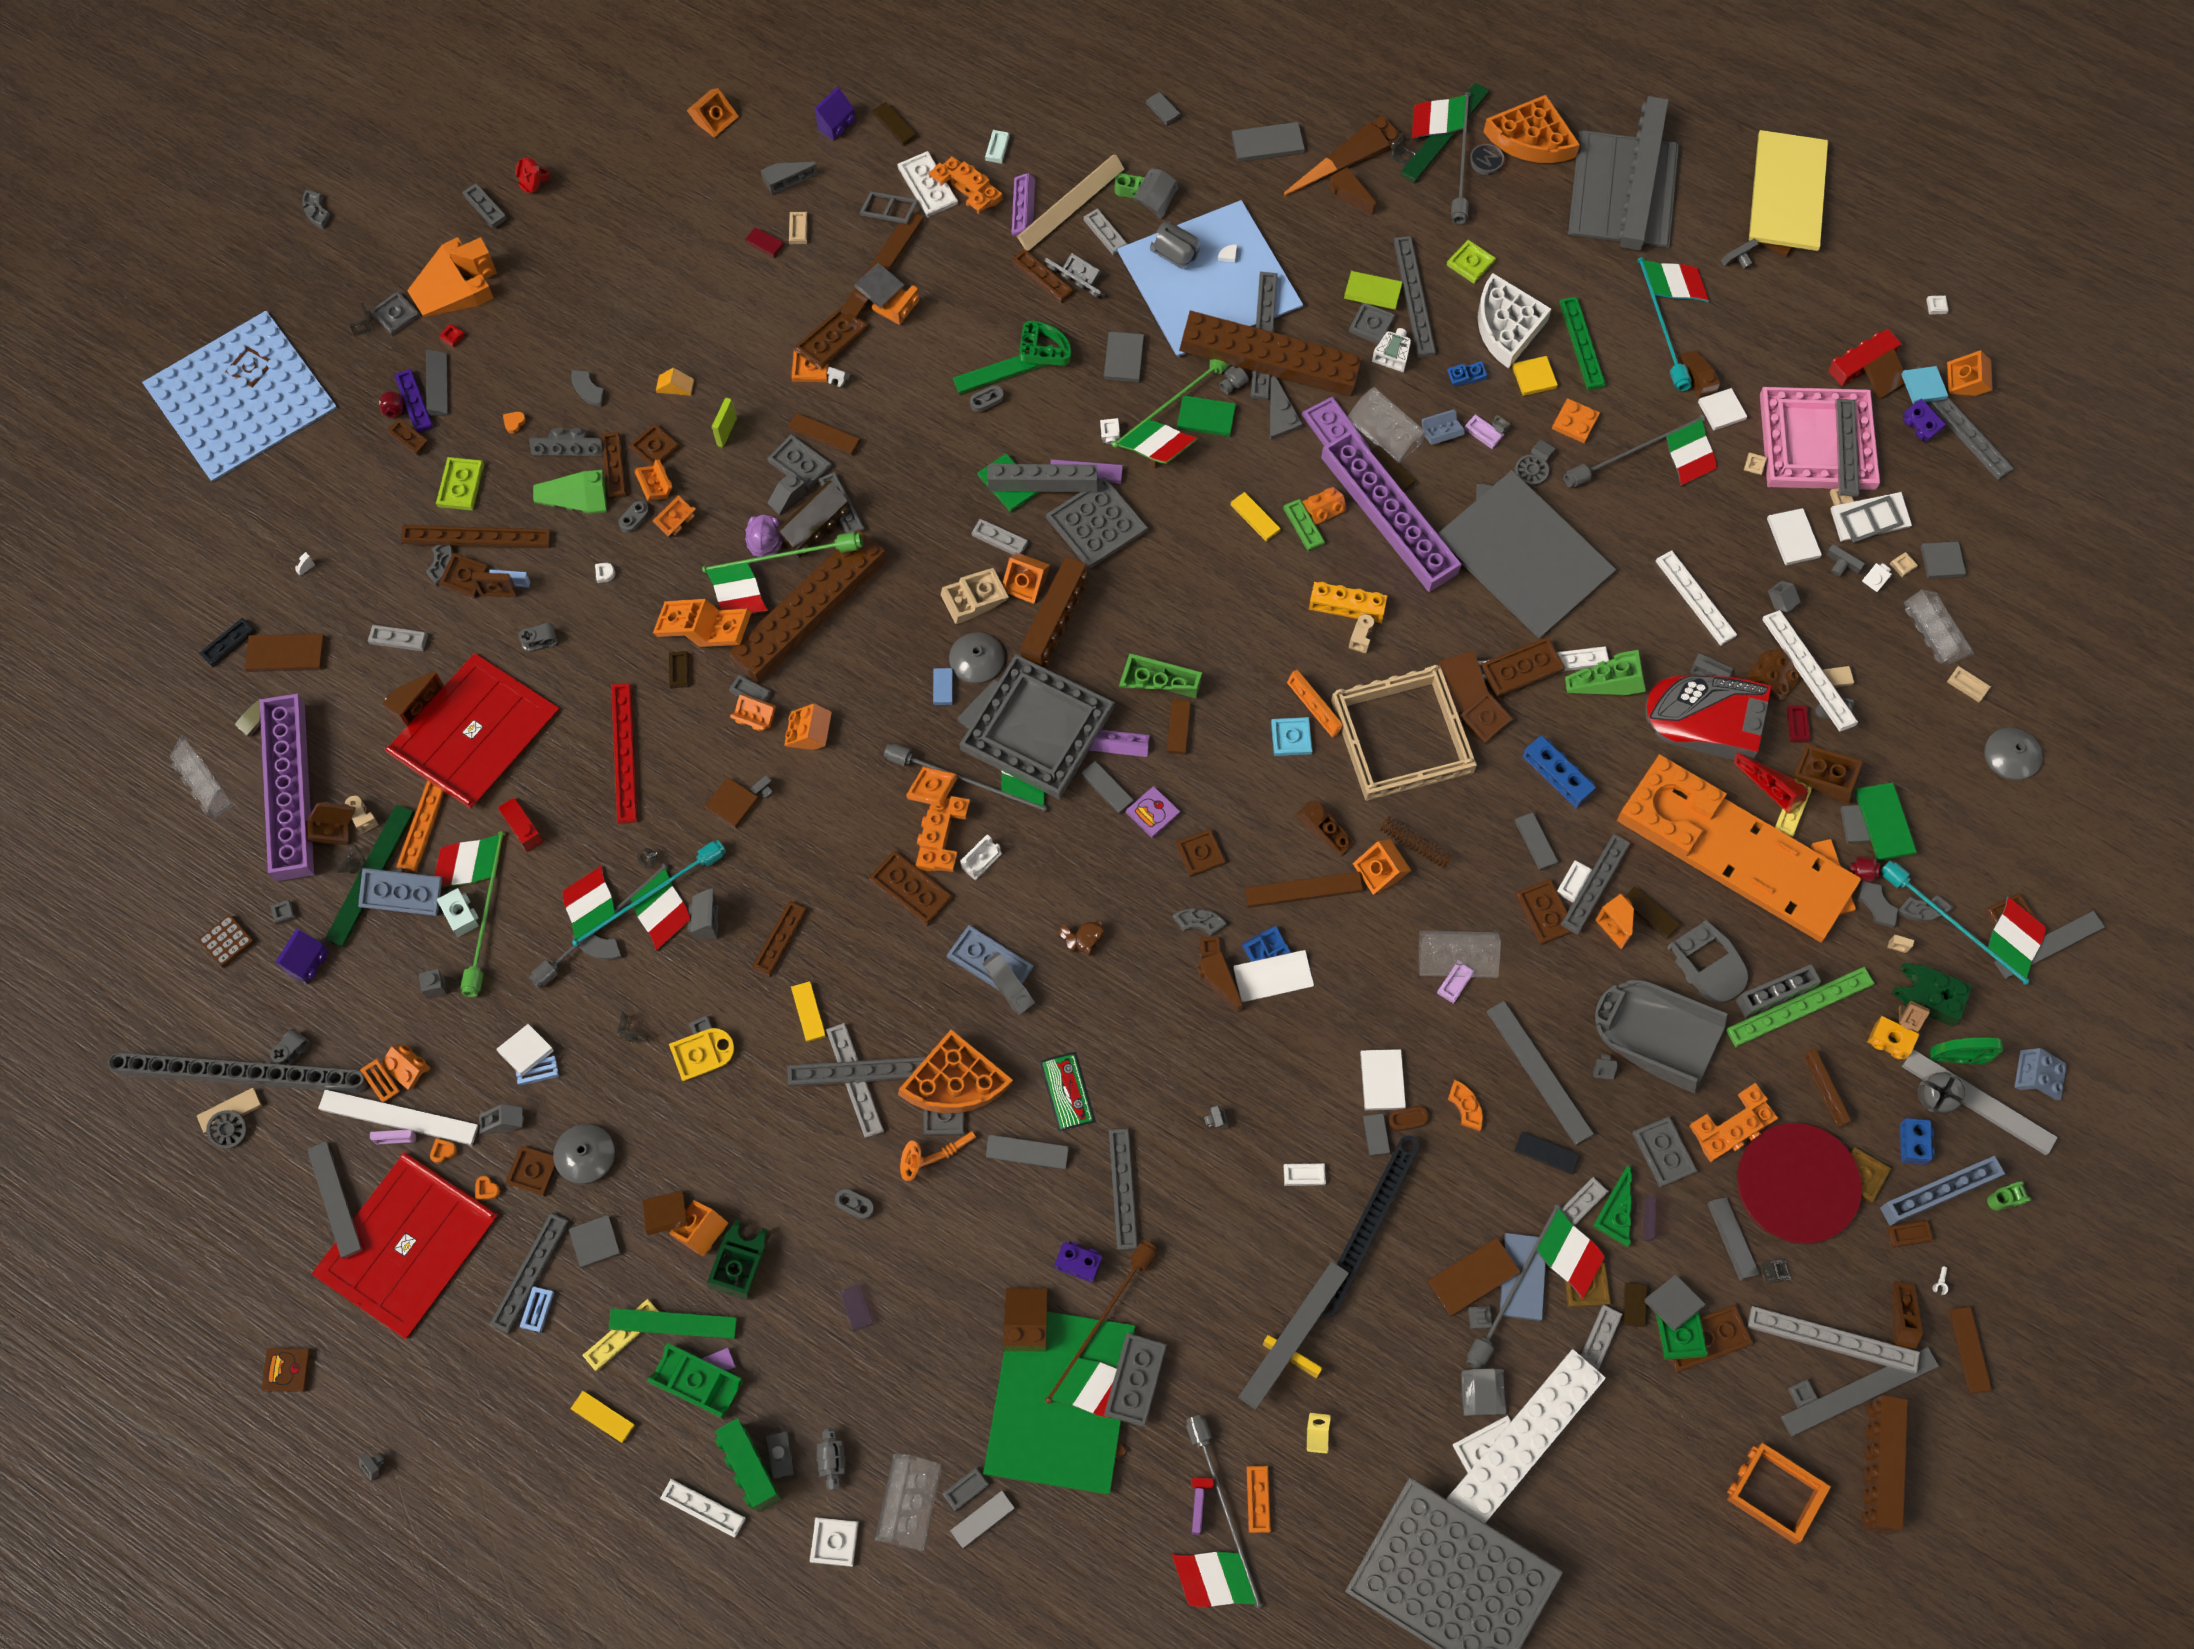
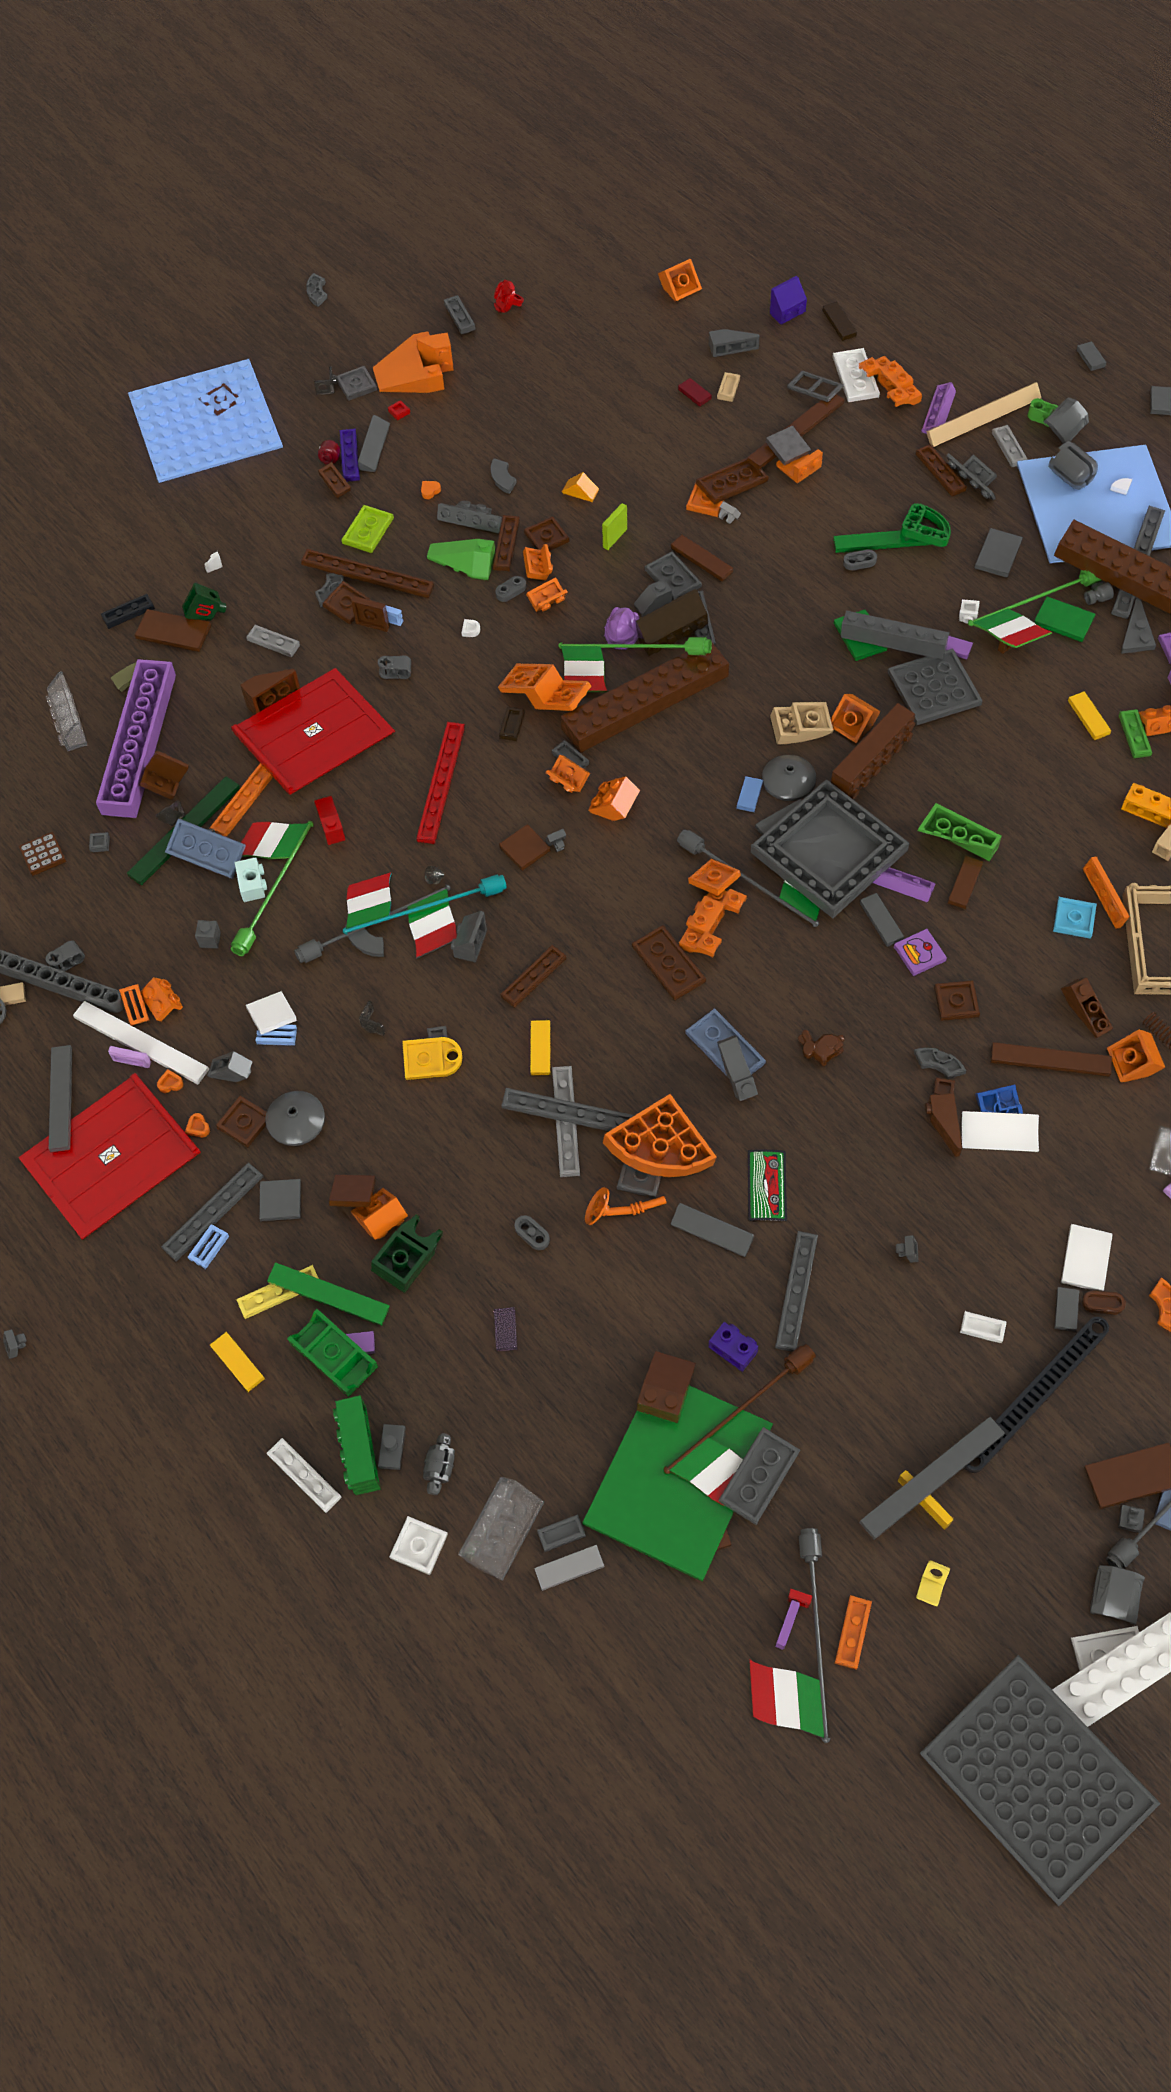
camera: 20 degrees right, 5 degrees down
(302, 956) = (101, 881): dark purple slope -> none
(309, 616) = (202, 603): none -> dark green torso
(362, 821) = (193, 782): tan leg -> none
(981, 857) = (743, 951): white hinge -> none
(997, 146) = (928, 357): light aqua tile -> none
(999, 537) = (838, 679): light grey tile -> none

